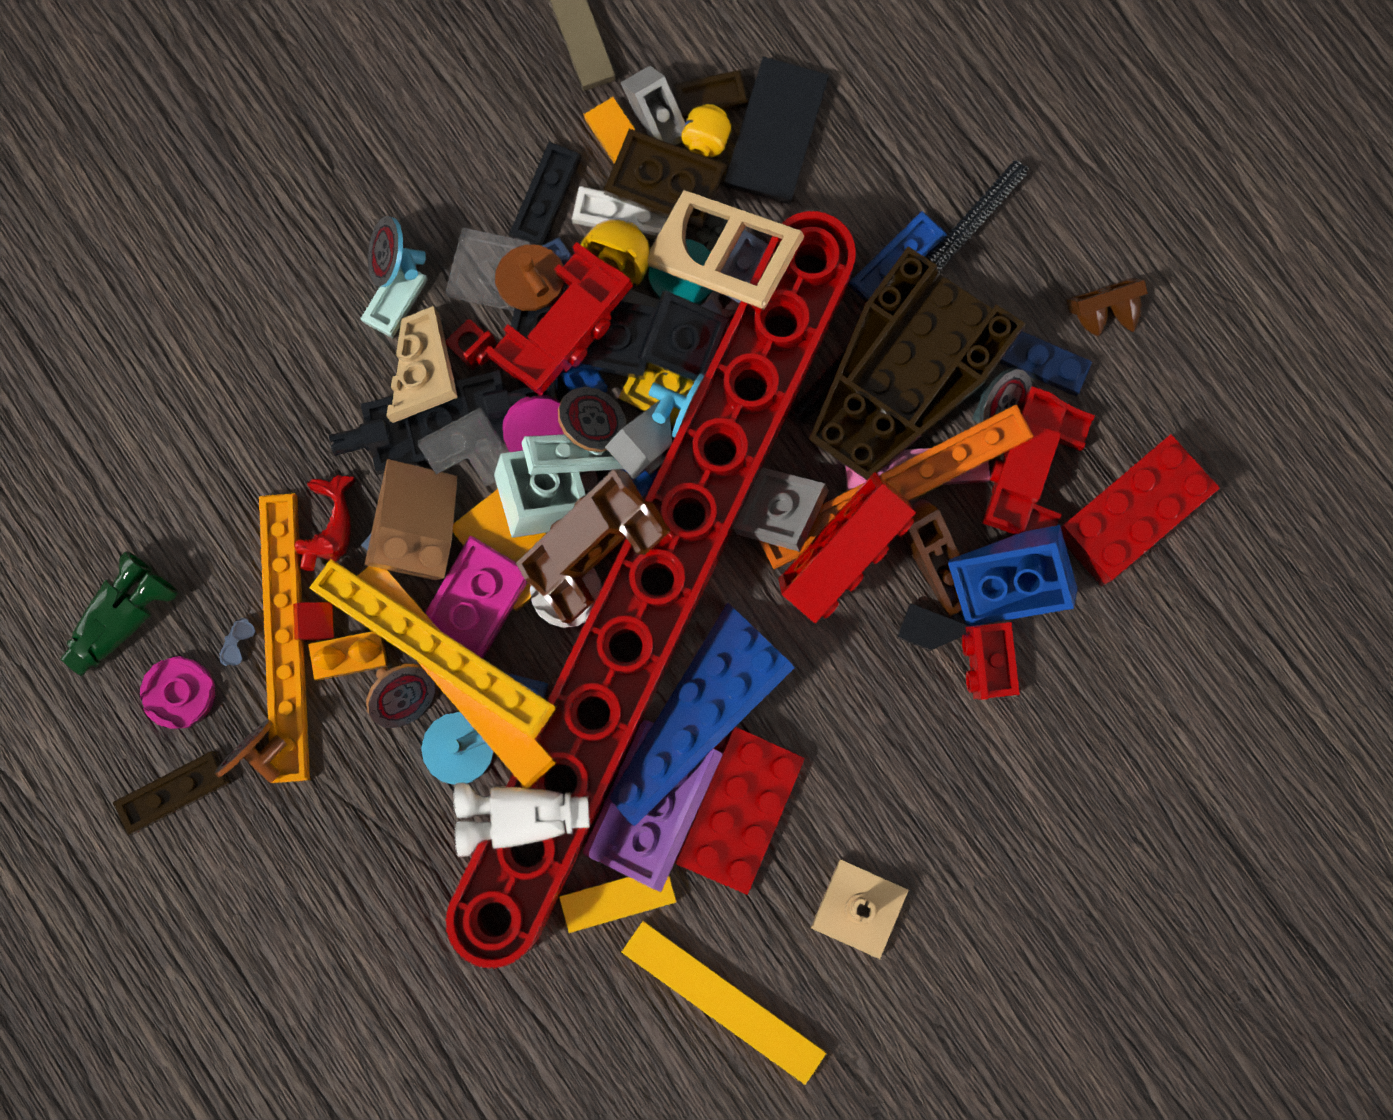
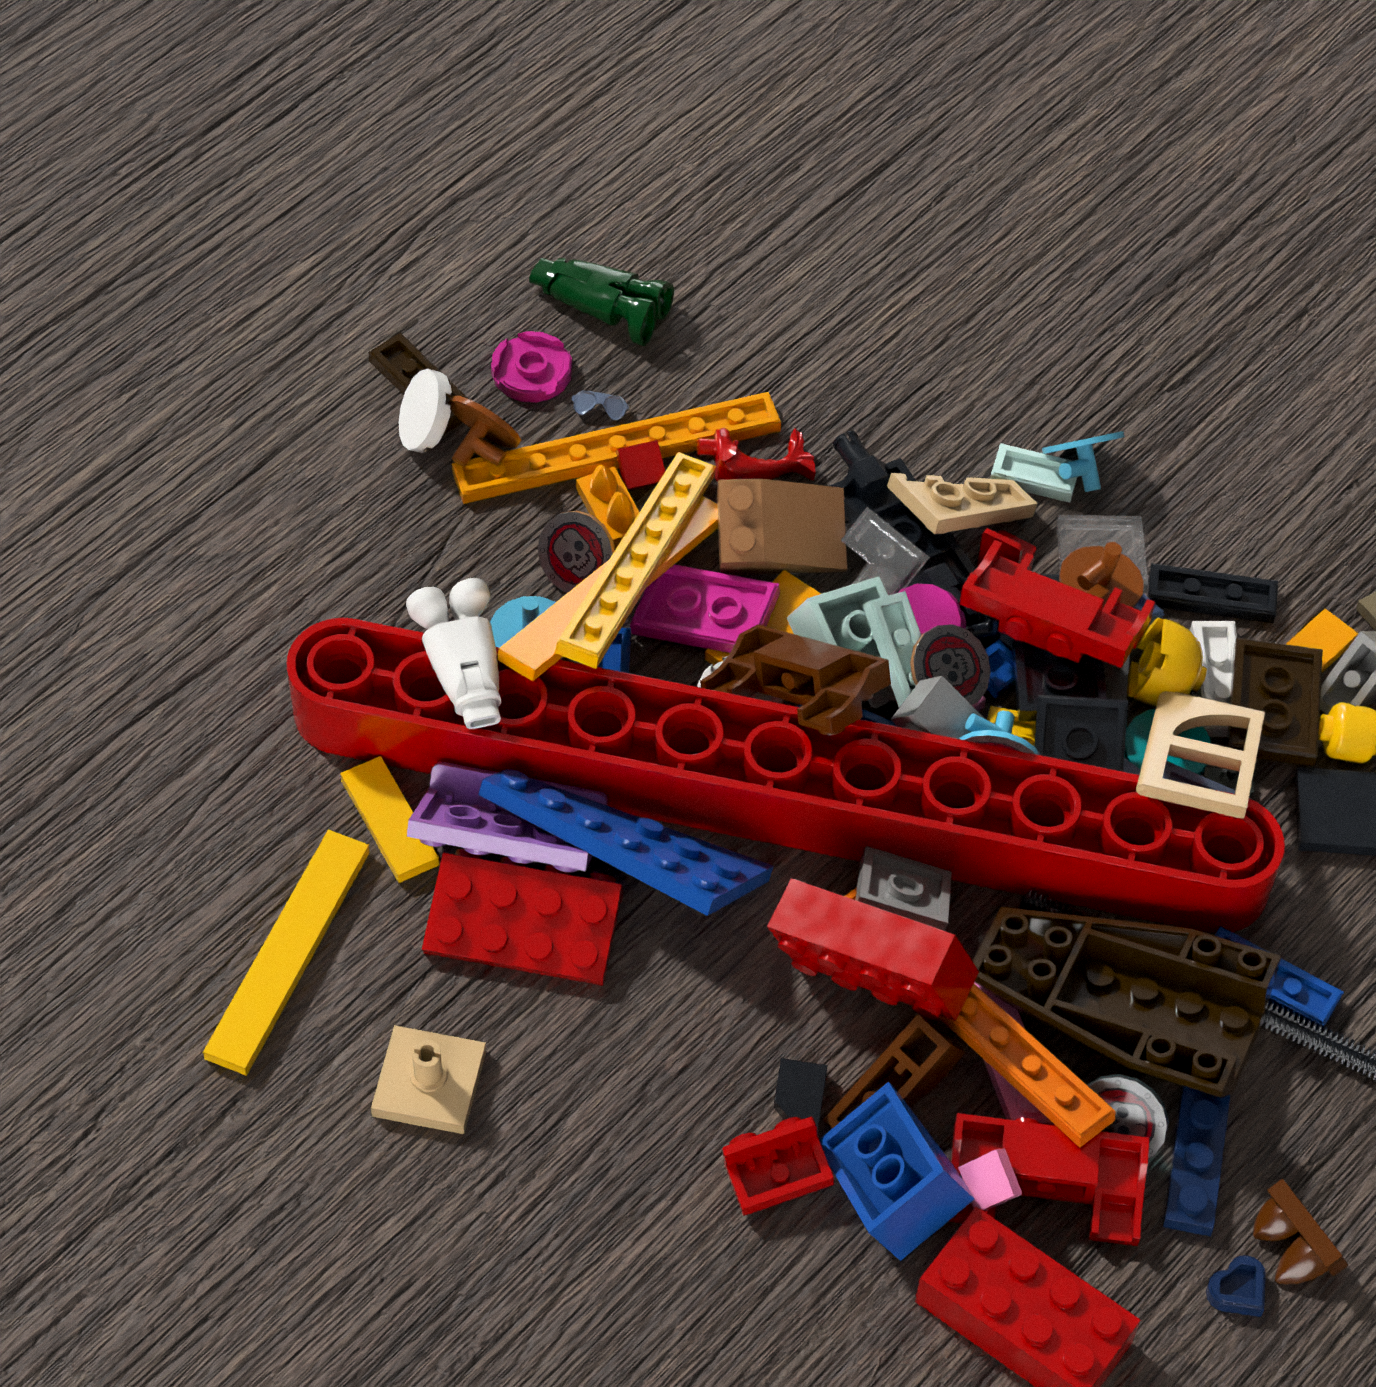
camera: 75 degrees right, 25 degrees down
(217, 798) = (424, 410): none -> white tile
(1044, 509) = (990, 1179): none -> bright pink tile
(1135, 357) = (1239, 1287): none -> dark blue tile

